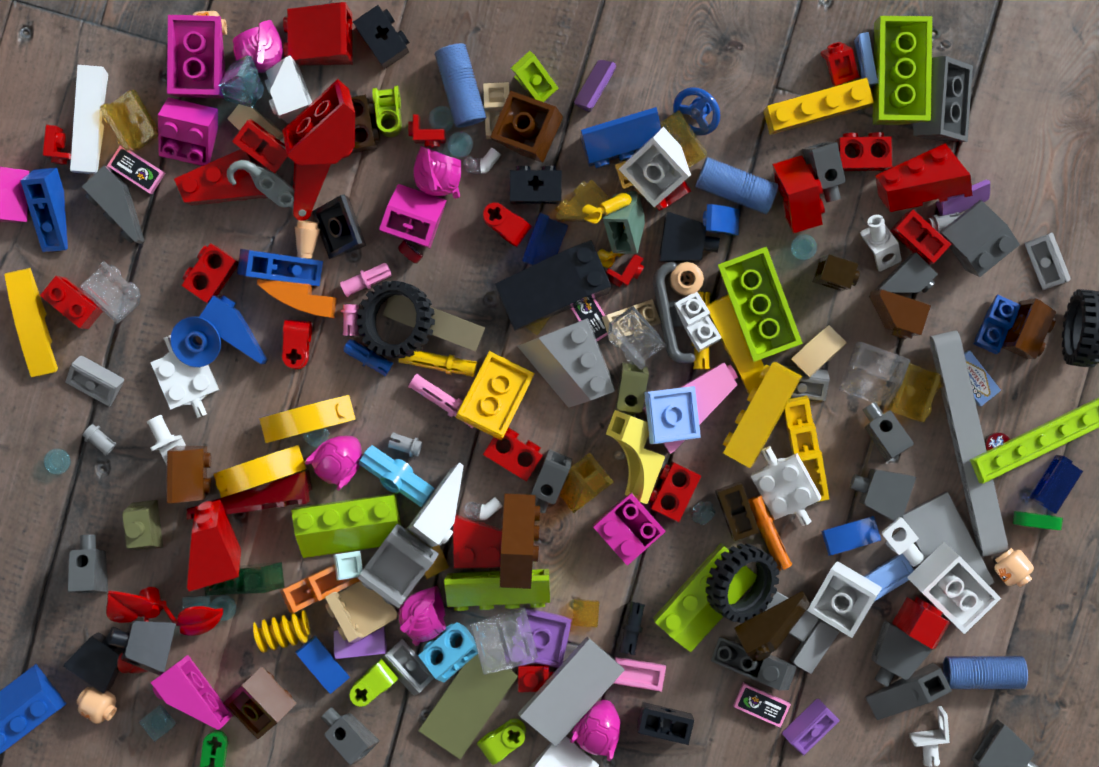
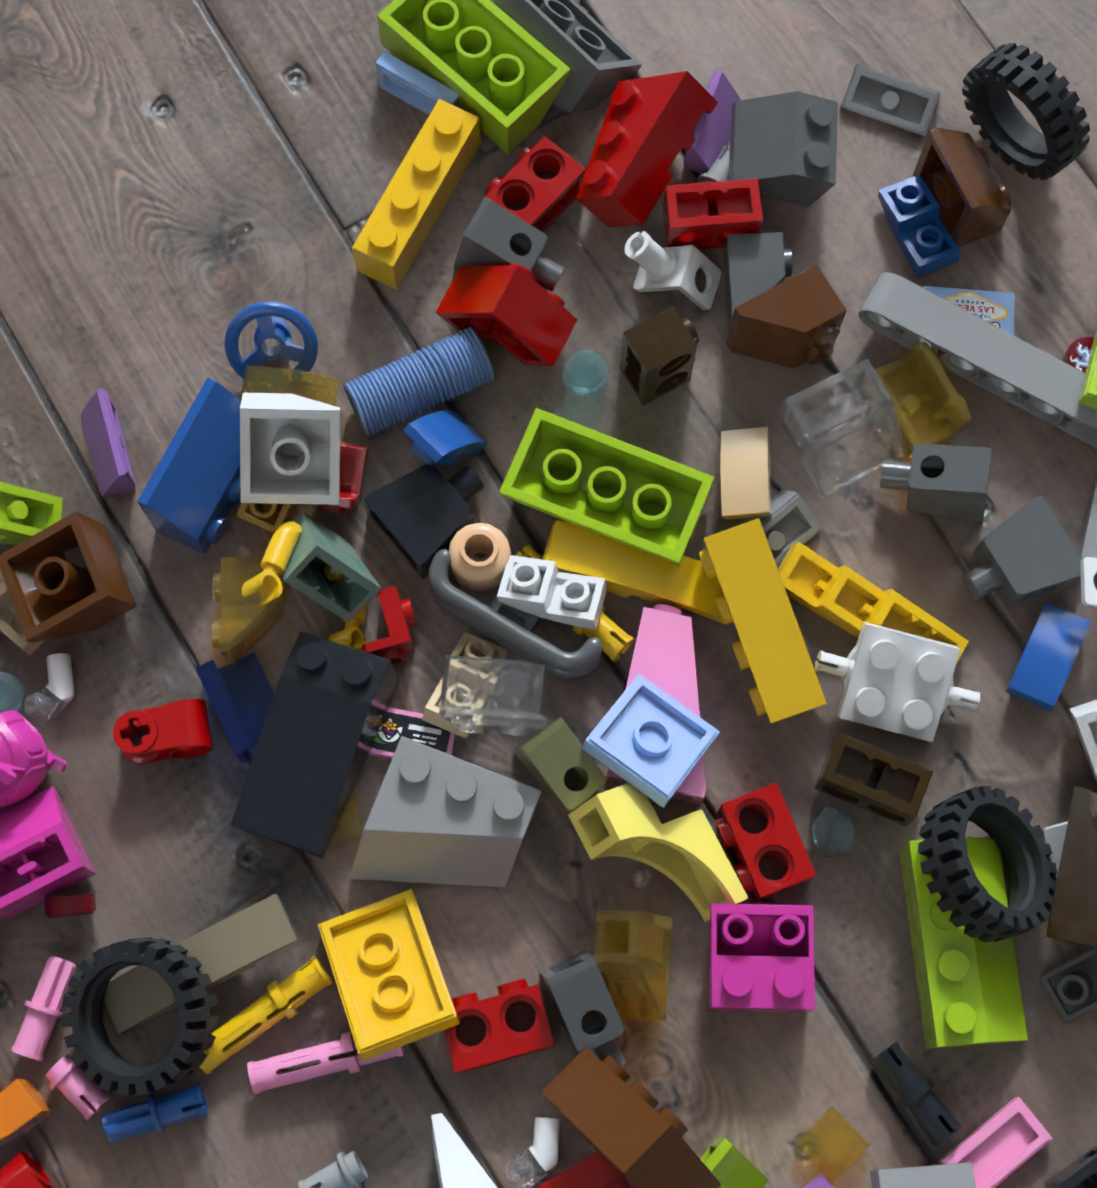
camera: 45 degrees left, 15 degrees down
(523, 194) = (153, 669): black brick -> none
(767, 528) = (947, 765): orange pin -> none
(840, 63) = (389, 121): red bracket -> none

